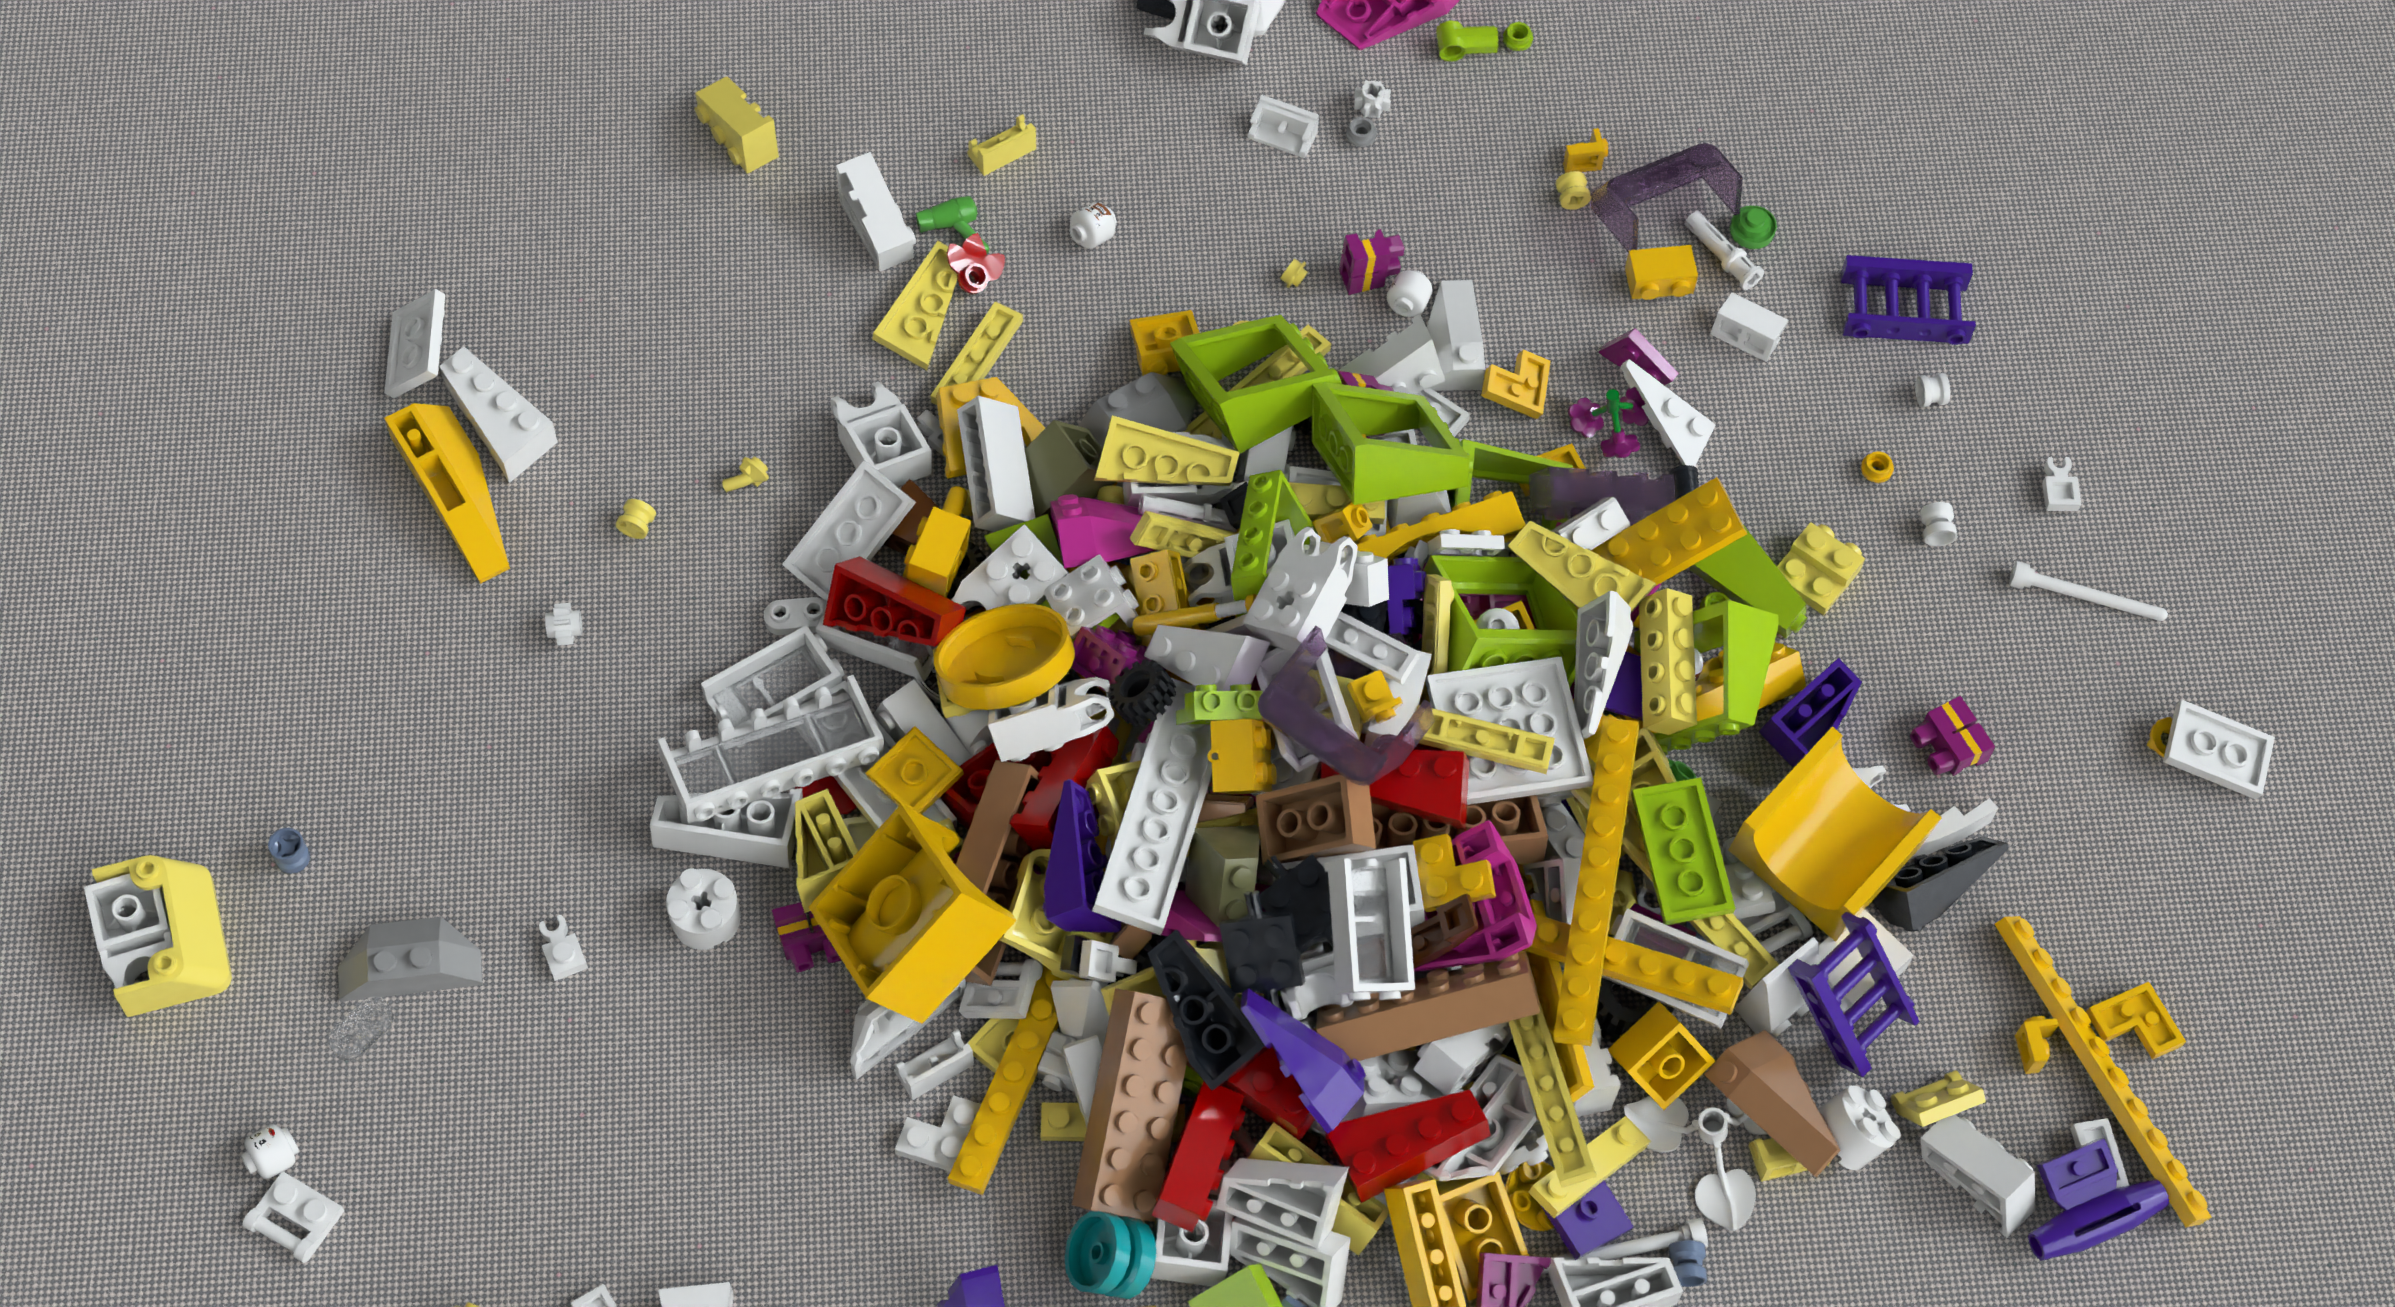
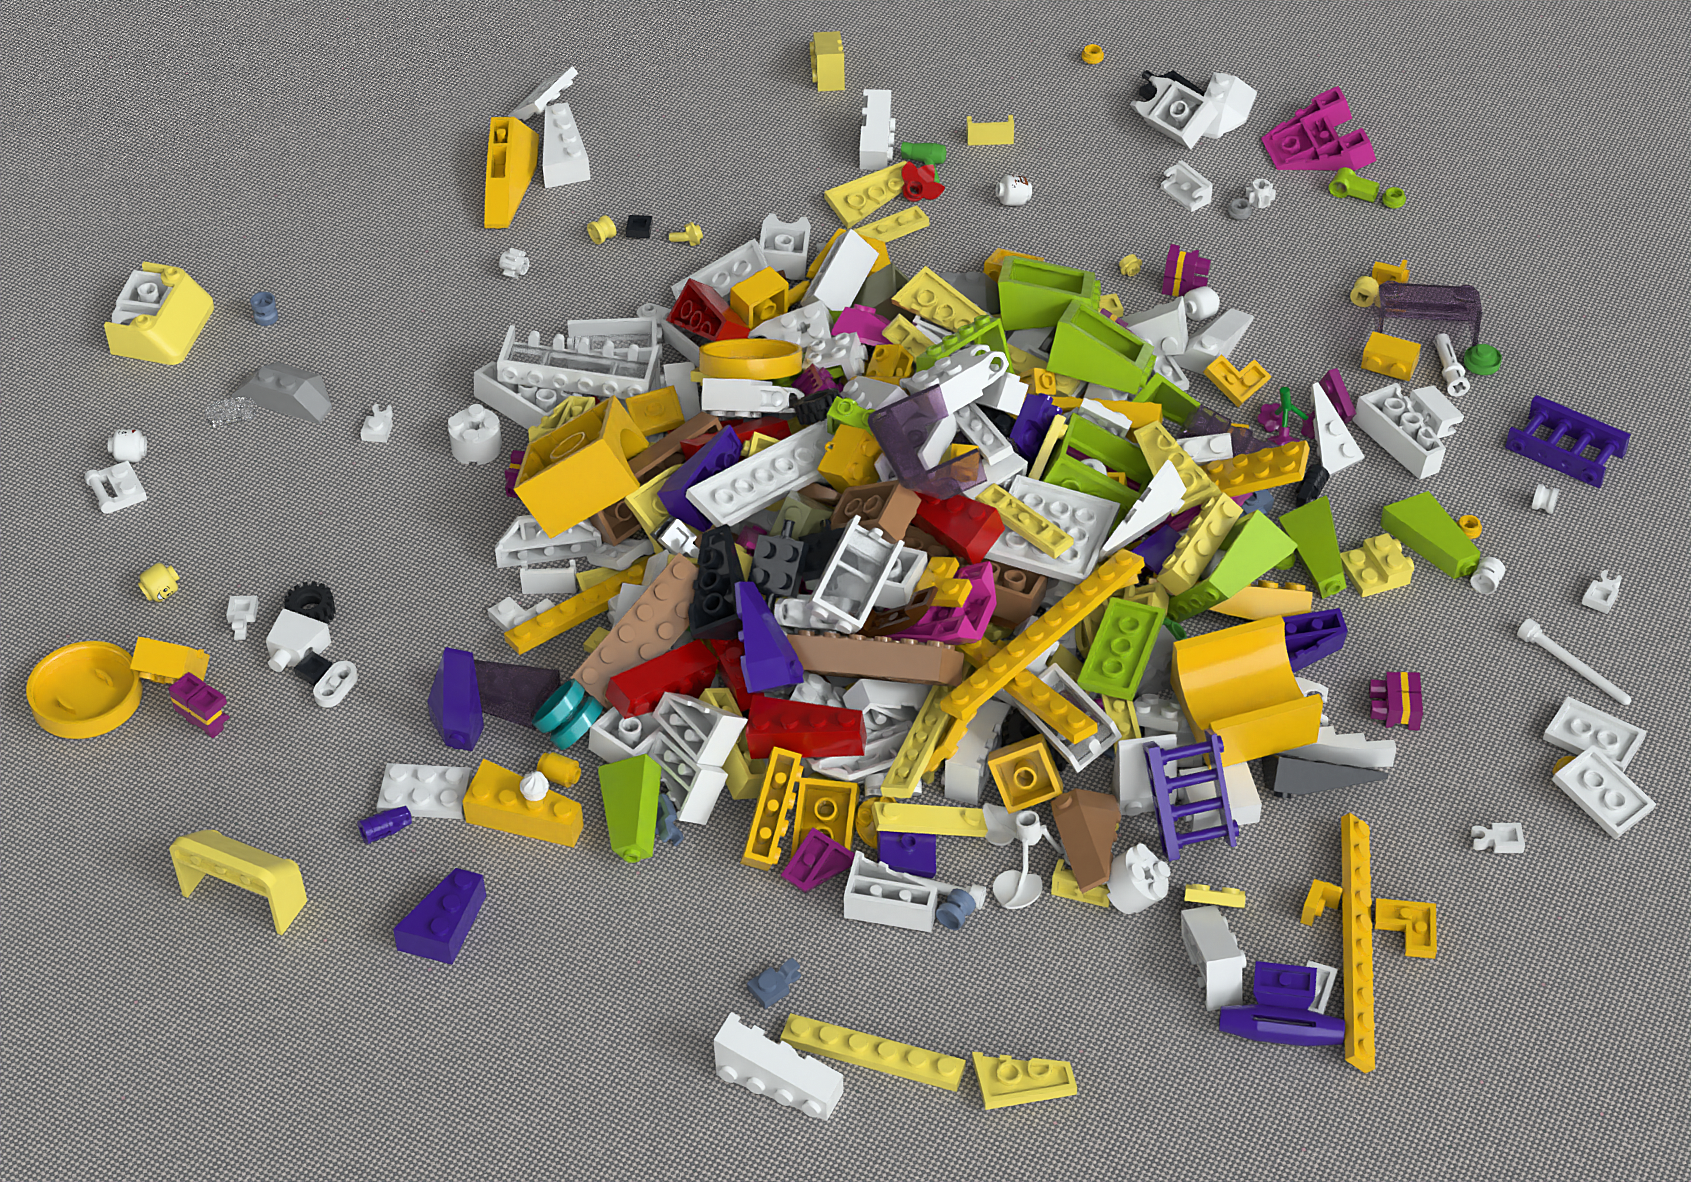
camera: 35 degrees right, 15 degrees down
(672, 1240) = (311, 595): none -> black tyre
(677, 490) = (639, 226): none -> black plate
(1020, 1244) = (514, 690): none -> clear purple wedge
(1737, 373) = (1399, 430): none -> white wedge
(1851, 497) = (1431, 533): none -> lime slope
(2155, 858) = (1502, 836): none -> white plate
(2162, 677) = (1581, 726): none -> white plate

